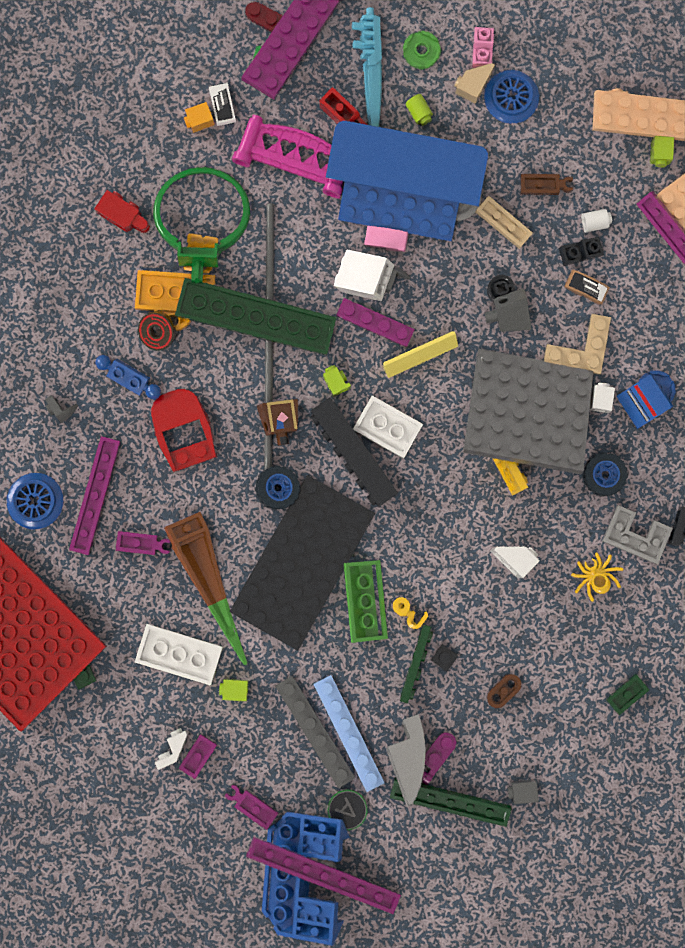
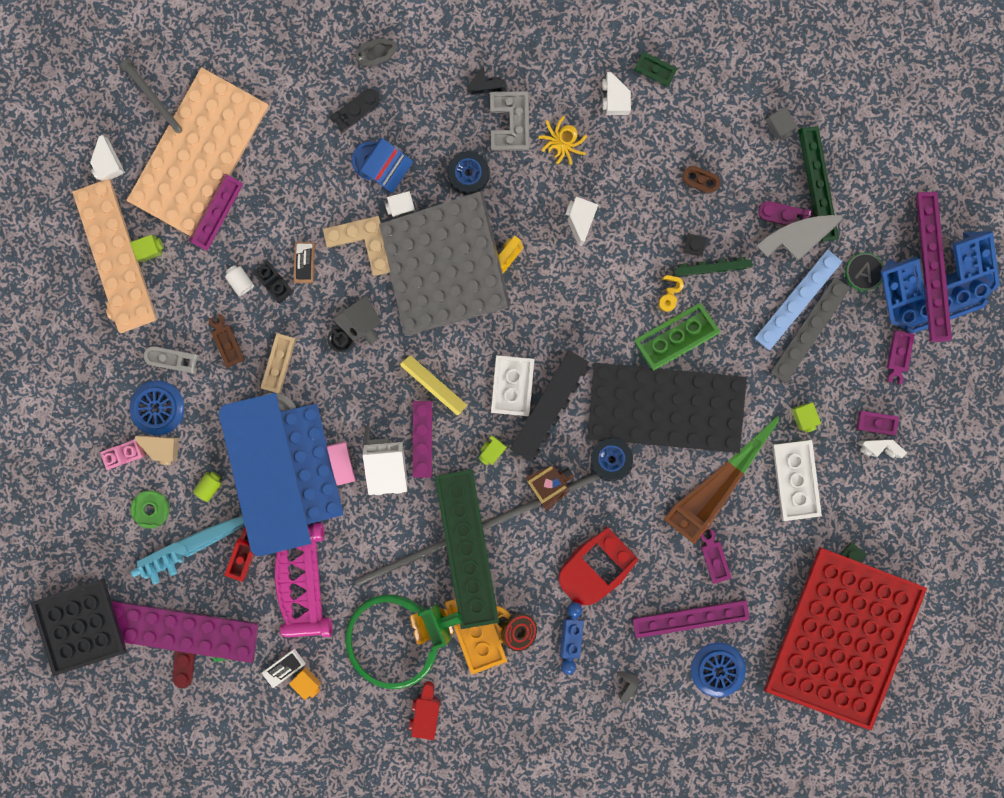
camera: 105 degrees left, 5 degrees up
(550, 128) = (171, 359): none -> light grey plate
(617, 646) = (617, 97): none -> white slope

